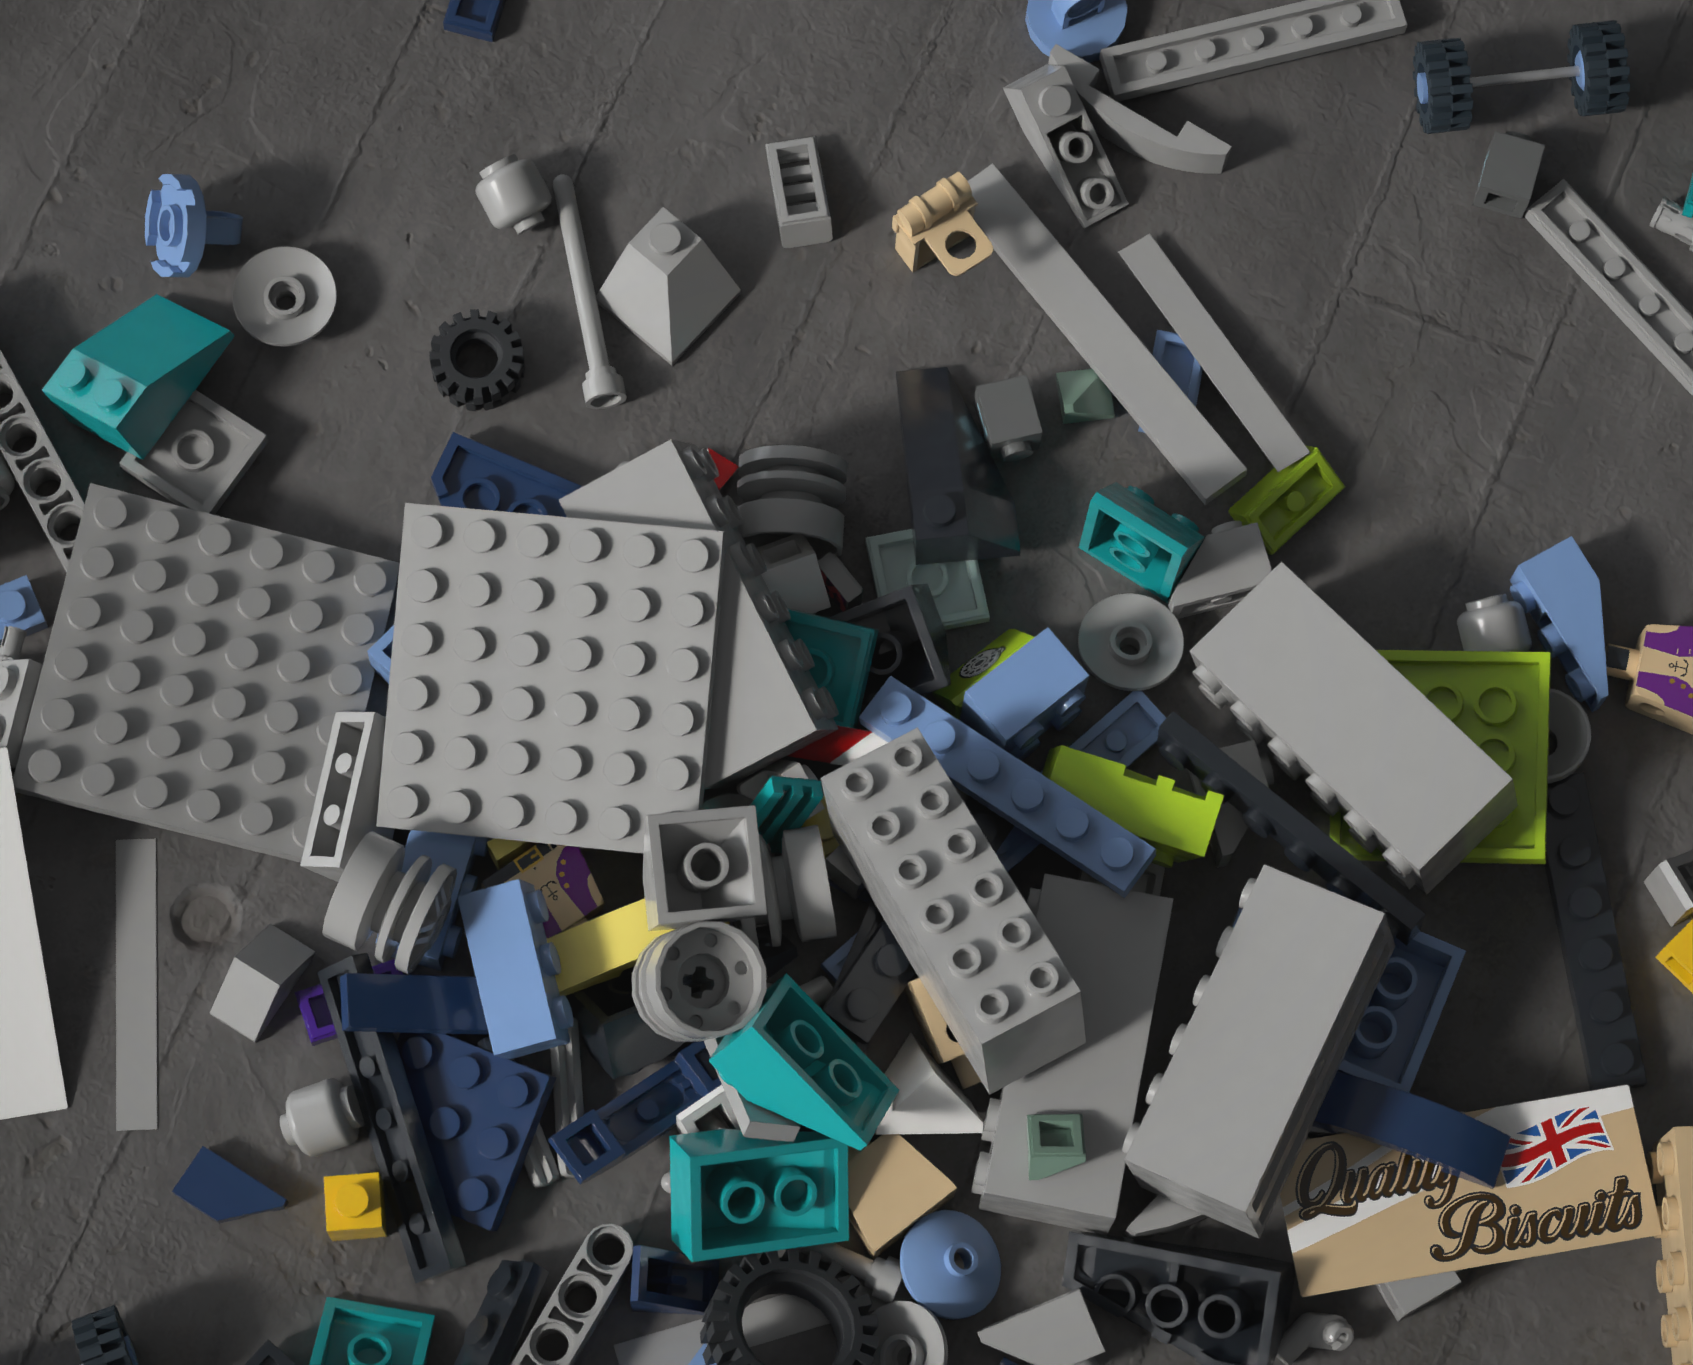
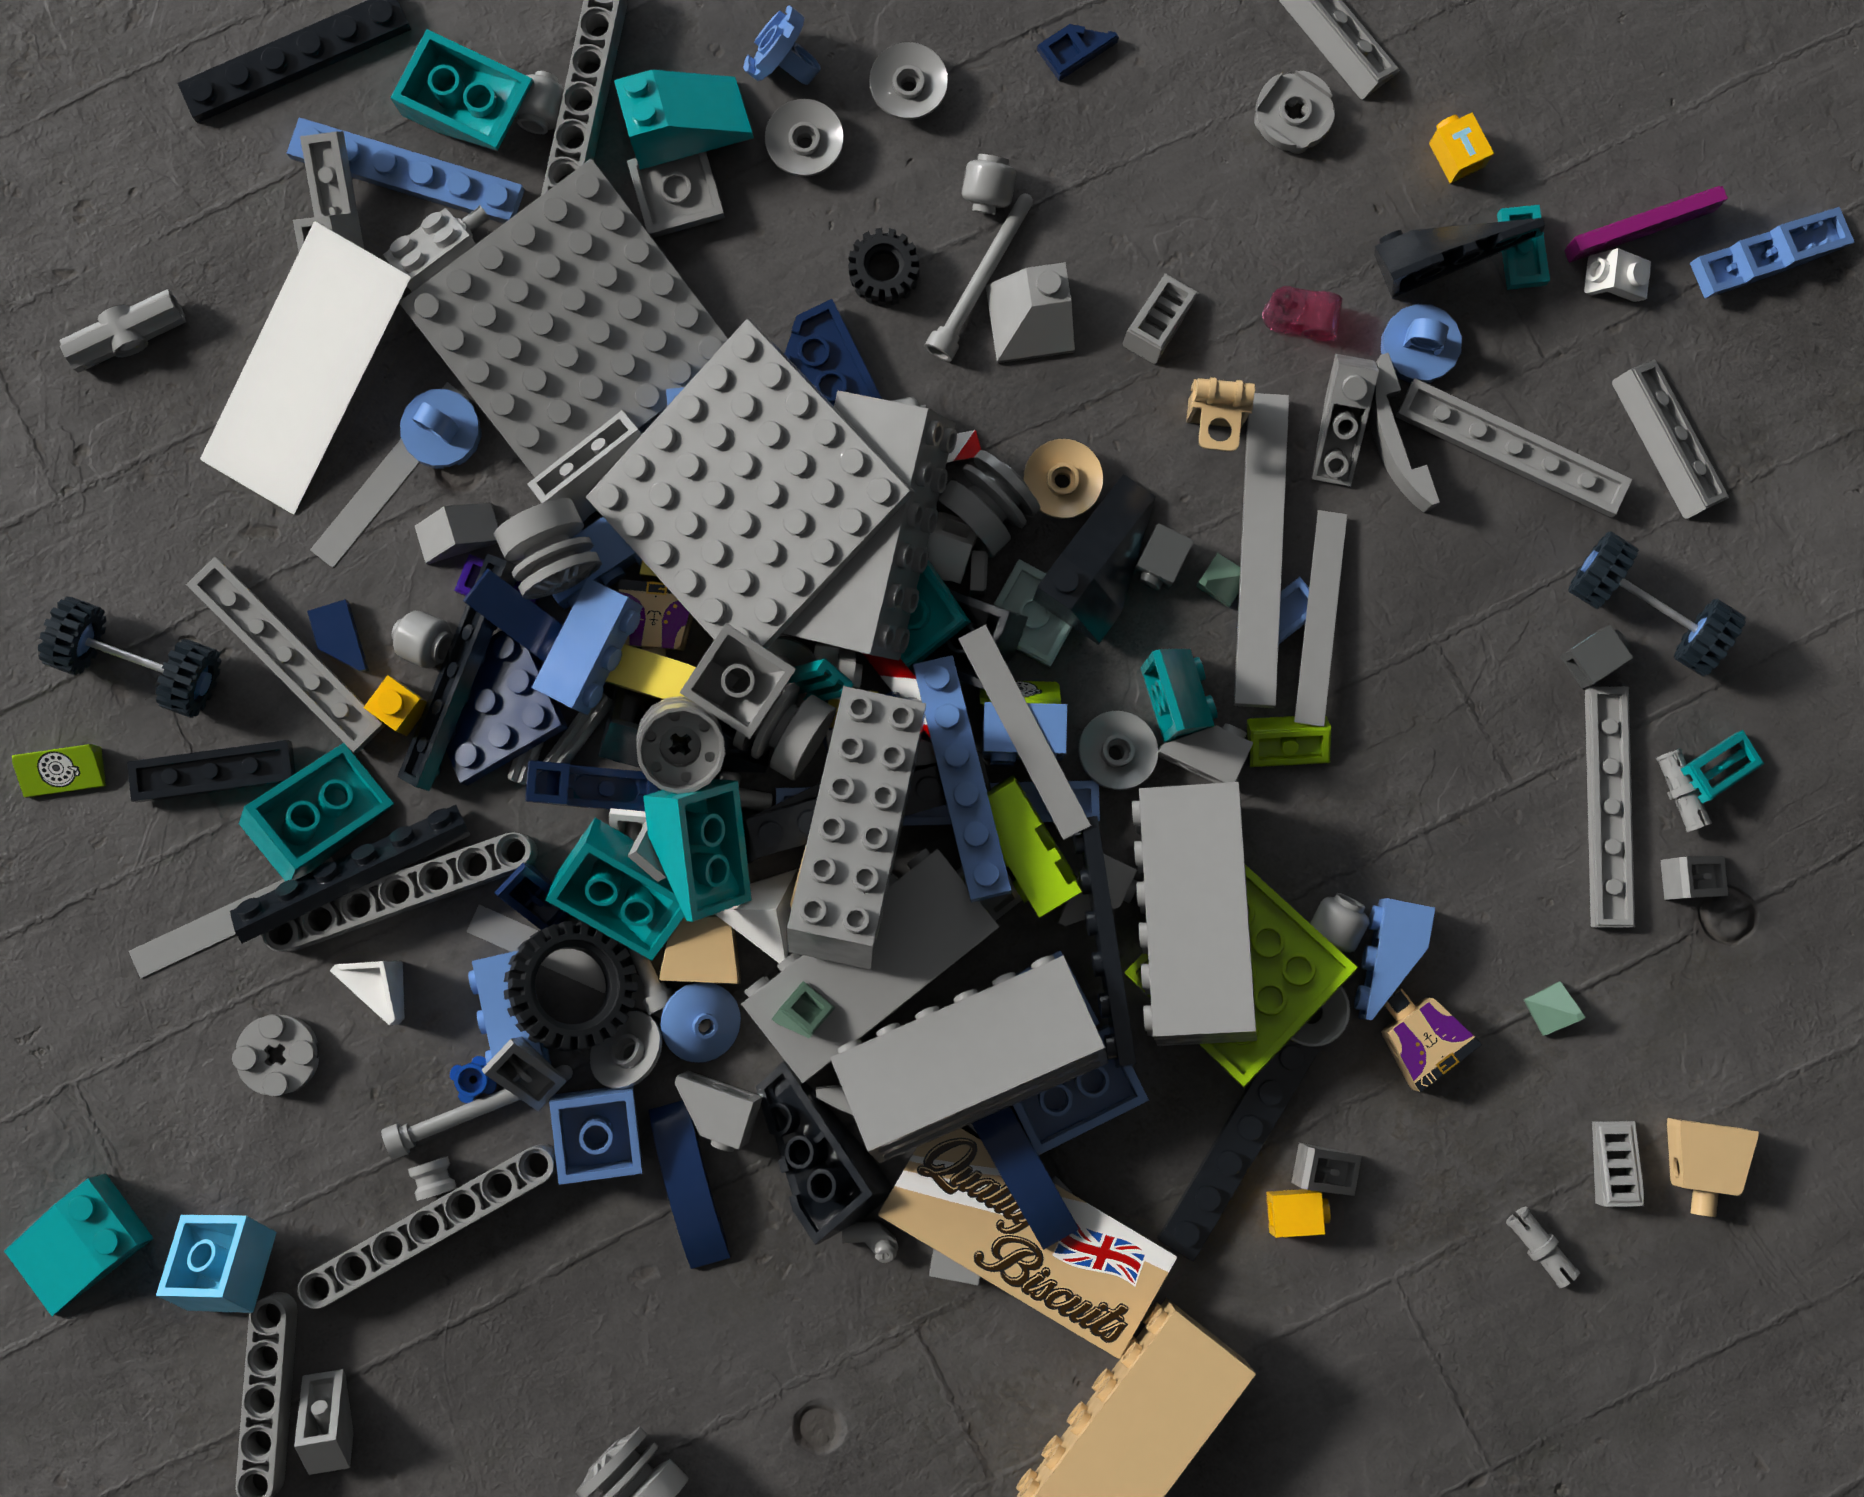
camera: 45 degrees right, 10 degrees up
(152, 891) = (440, 428): none -> medium blue tile
(188, 1255) = (285, 654): none -> light grey plate
(341, 136) = (912, 64): none -> light grey dish
(847, 399) = (1068, 459): none -> tan dish
(944, 69) = (1310, 313): none -> clear pink piece
(1030, 688) = (1024, 732): none -> light grey sticker

